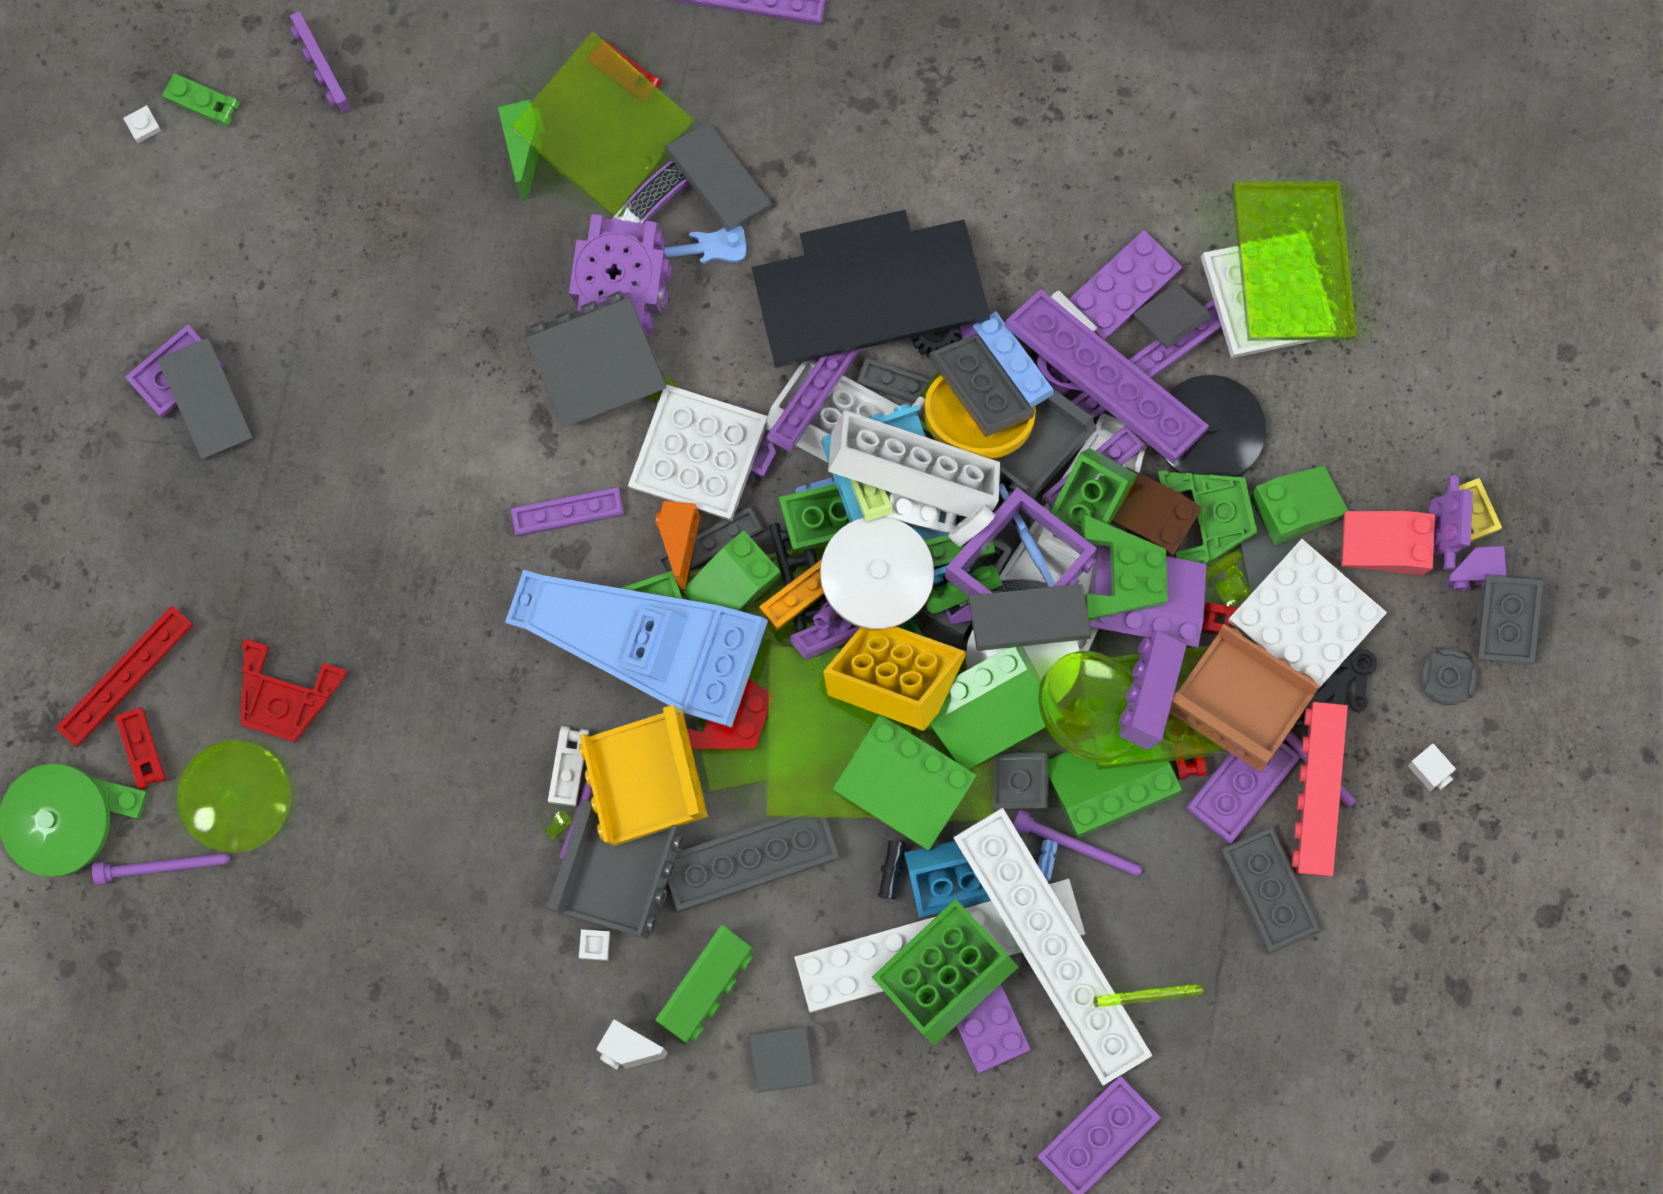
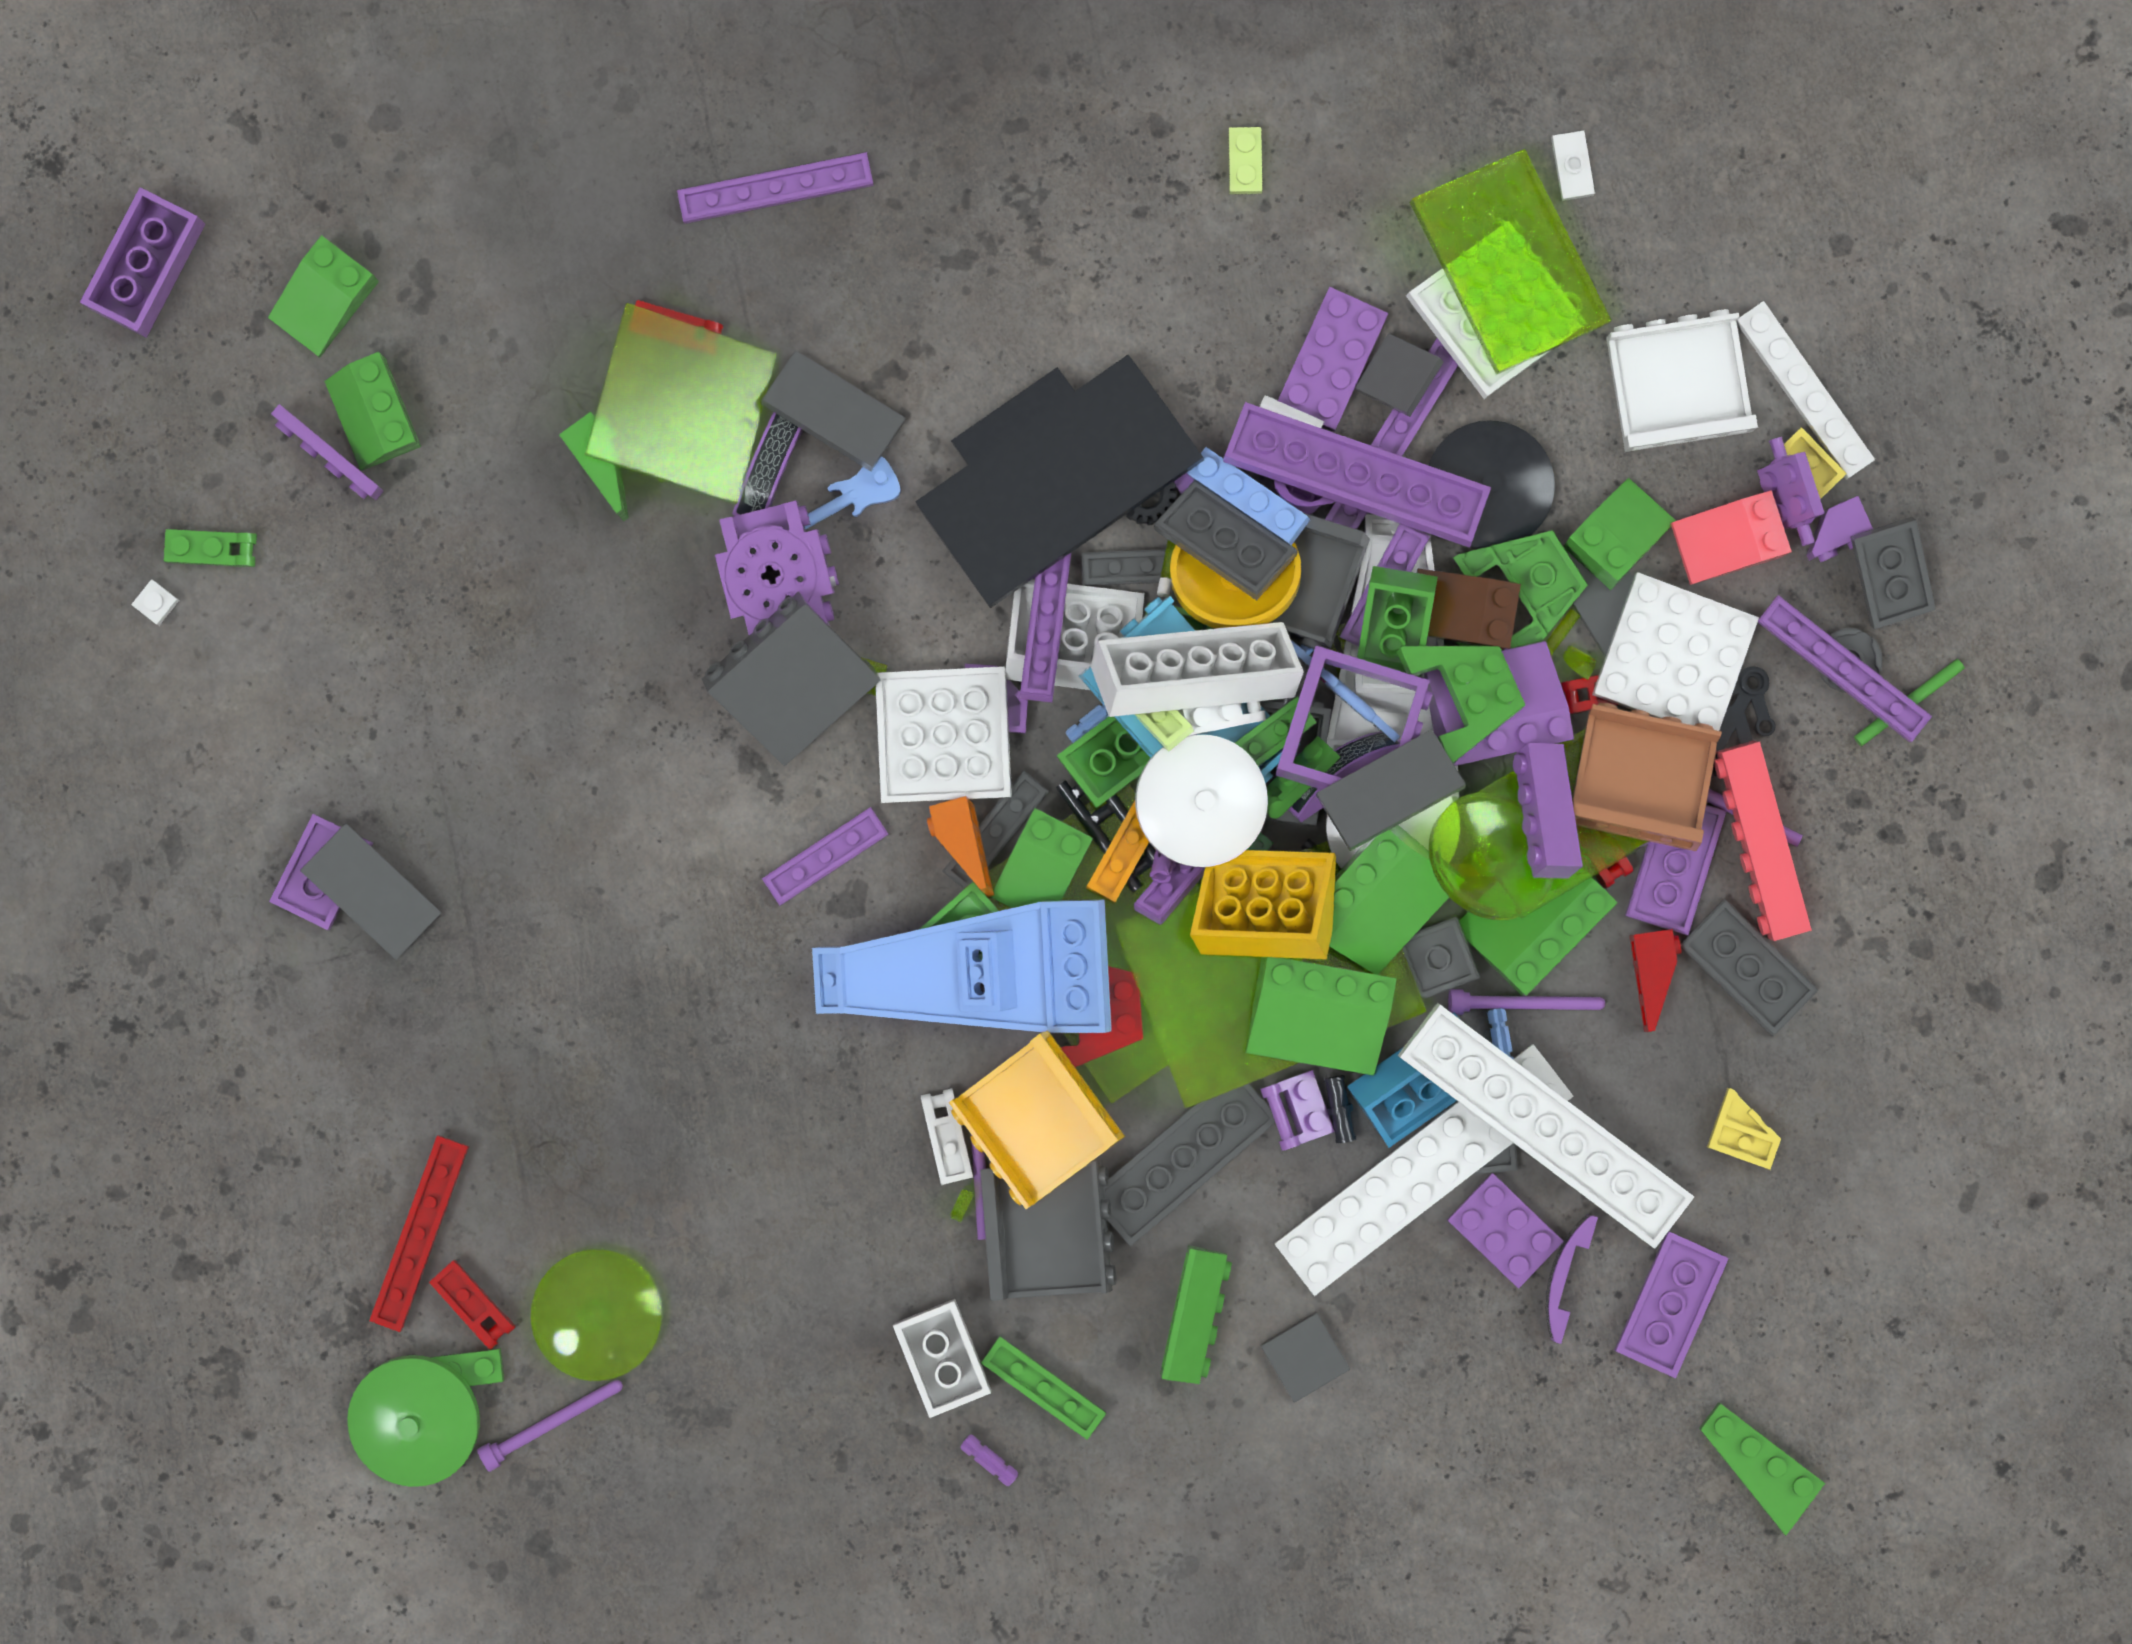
camera: 30 degrees left, 10 degrees up
(279, 706) = (601, 1198): red wing -> none
(368, 45) = (372, 411): none -> bright green slope
(489, 938) = (942, 1358): none -> white brick
(492, 1038) = (989, 1460): none -> medium lavender axle
(560, 997) = (1043, 1387): none -> bright green plate
(594, 945) = (1056, 1318): white plate -> none
(628, 1048) = (1141, 1414): white slope -> none
(865, 856) = (1305, 1108): none -> plate
(944, 972) = (1443, 1199): bright green slope -> none
(971, 525) = (1283, 708): white beam -> none
(1044, 1052) = (1556, 1317): none -> medium lavender slope
(1116, 112) = (1245, 160): none -> yellowish green plate
(1148, 995) = (1666, 1136): clear neon green bar -> none
(1193, 855) = (1654, 967): none -> red slope
(1213, 1021) = (1743, 1133): none -> light yellow wing
(1233, 579) = (1583, 648): clear neon green tile -> none
(1374, 211) = (1573, 165): none -> white plate
(1395, 406) = (1680, 381): none -> white panel
(1432, 768) = (1871, 768): white brick -> none
(1441, 680) = (1844, 669): none -> medium lavender tile
(1485, 729) = (1916, 696): none -> bright green bar
(1494, 452) = (1804, 389): none -> white plate

